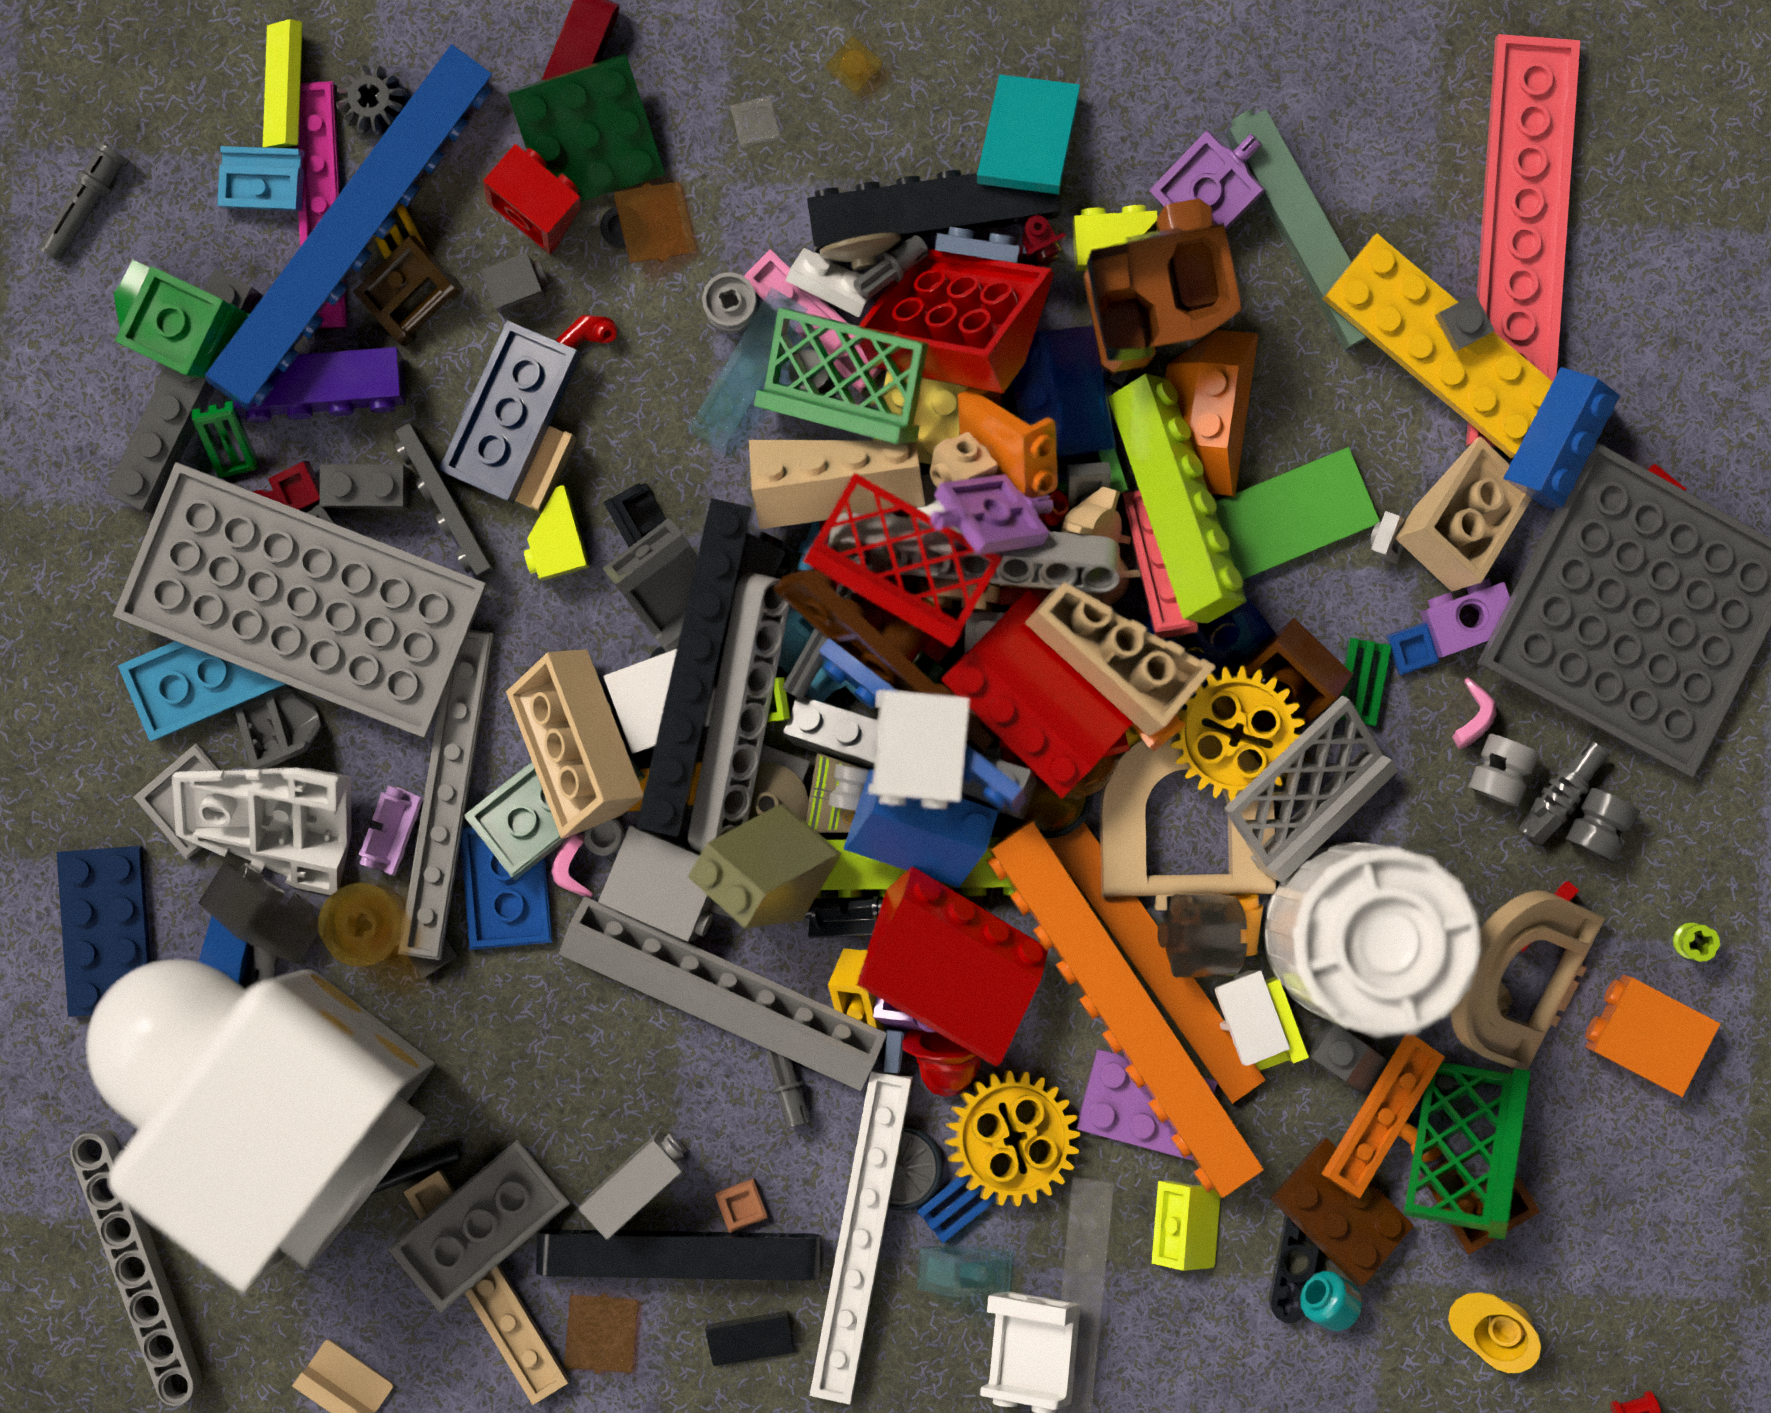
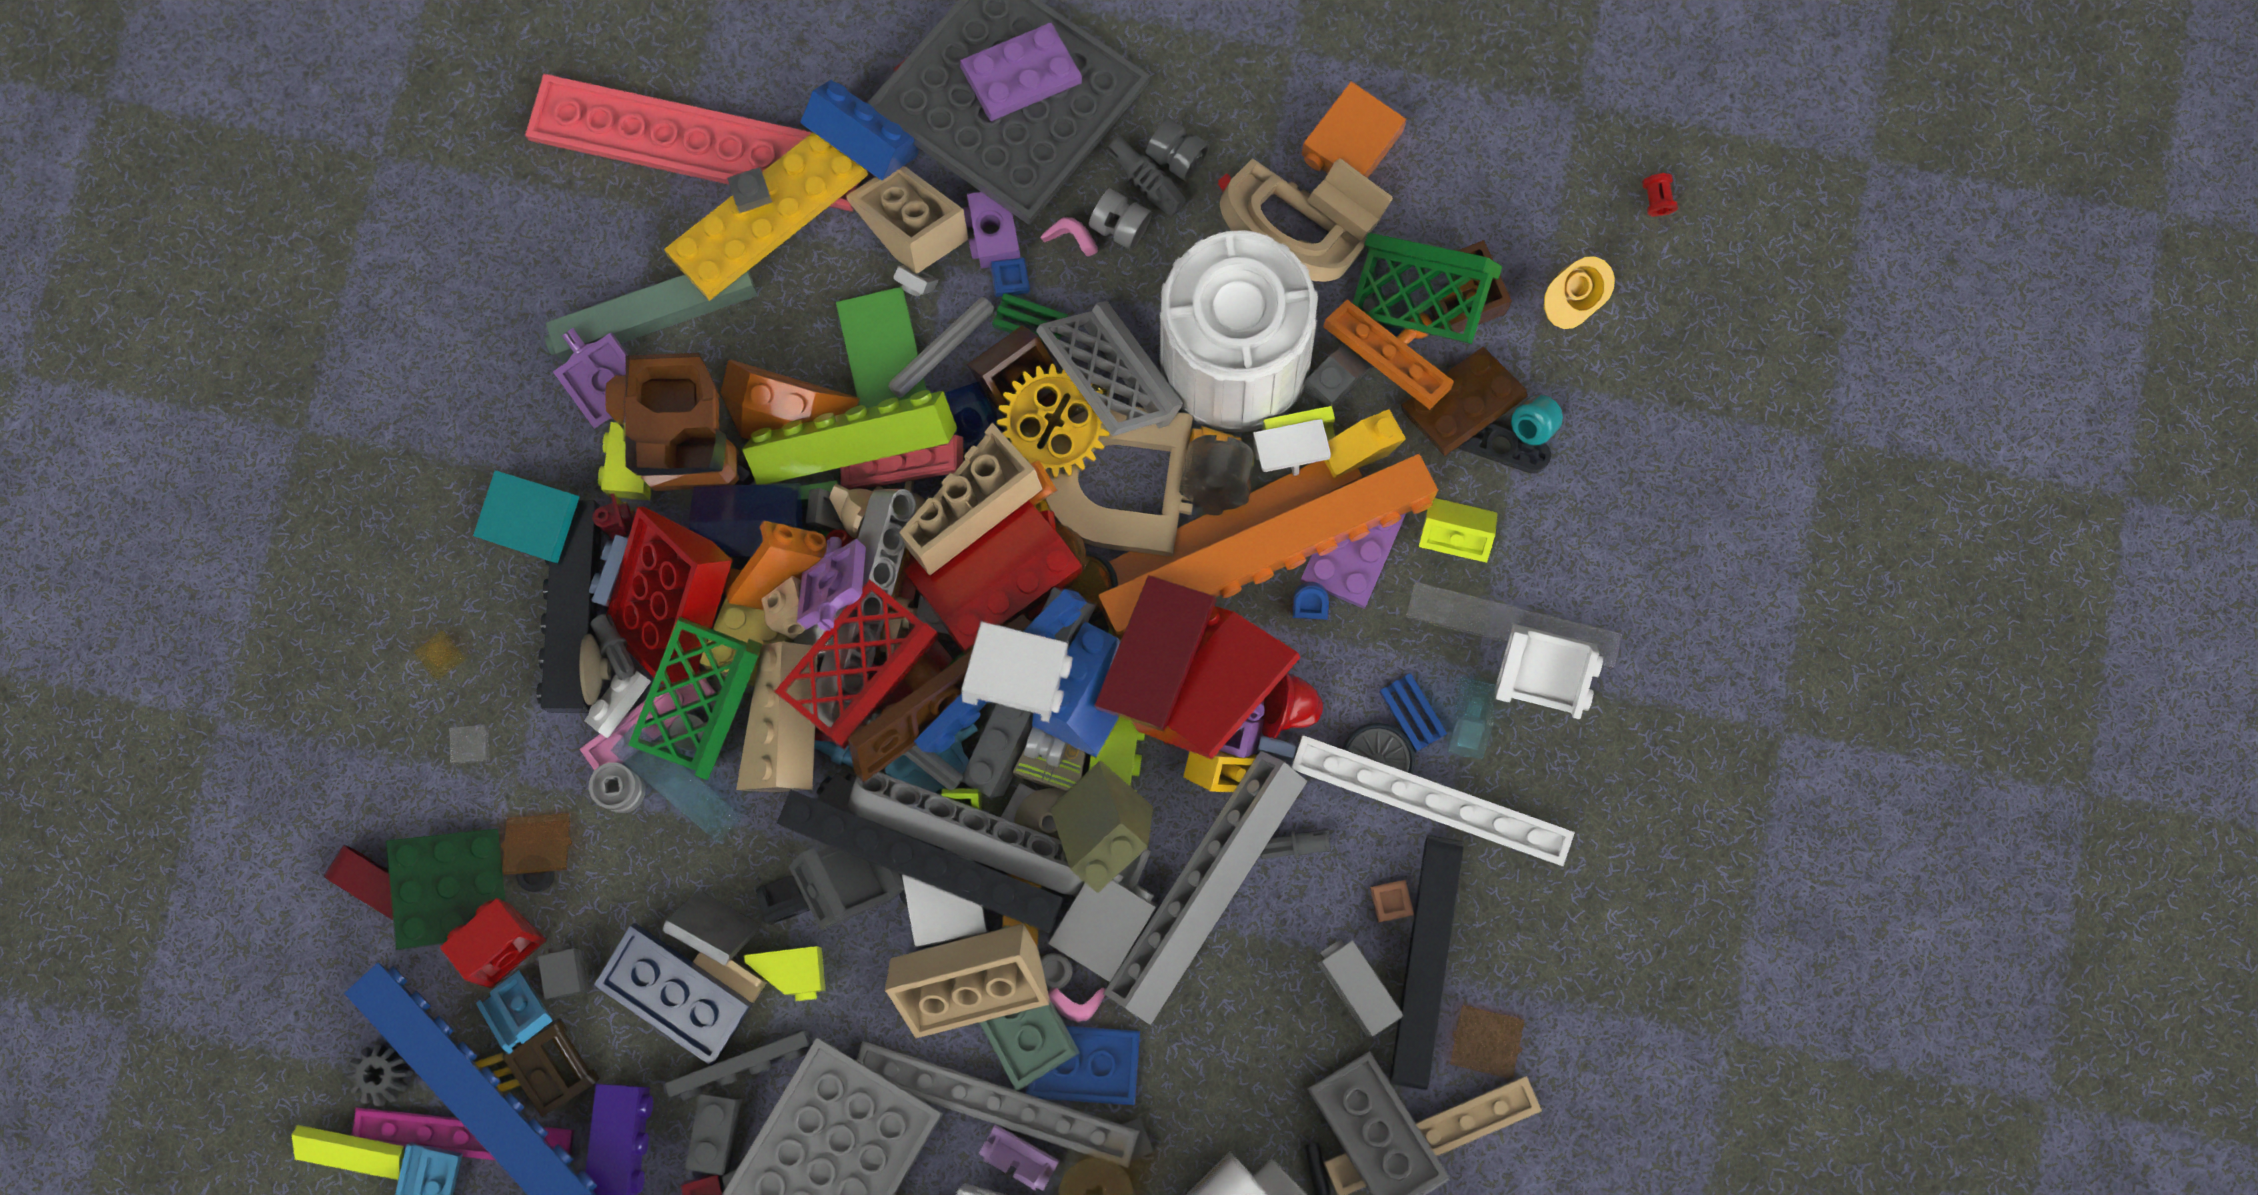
camera: 75 degrees left, 10 degrees down
(462, 237) = (514, 1011): none -> dark azure plate
(588, 441) = (711, 927): none -> flat silver tile
(589, 328) = (617, 913): red arm -> none
(749, 1338) = (1507, 911): black slope -> none
(843, 917) = (1157, 771): black hinge -> none
(972, 900) = (1155, 653): none -> dark red tile
(1046, 1125) = (1372, 690): yellow gear -> none
(1072, 1064) = (1310, 601): none -> blue tile
(1269, 1101) = (1364, 443): none -> yellow slope
(1311, 582) = (941, 347): none -> light grey axle
(1569, 1043) = (1350, 199): none -> tan panel
(1669, 621) = (1020, 71): none -> medium lavender plate
(1706, 949) = (1290, 85): lime bush -> none

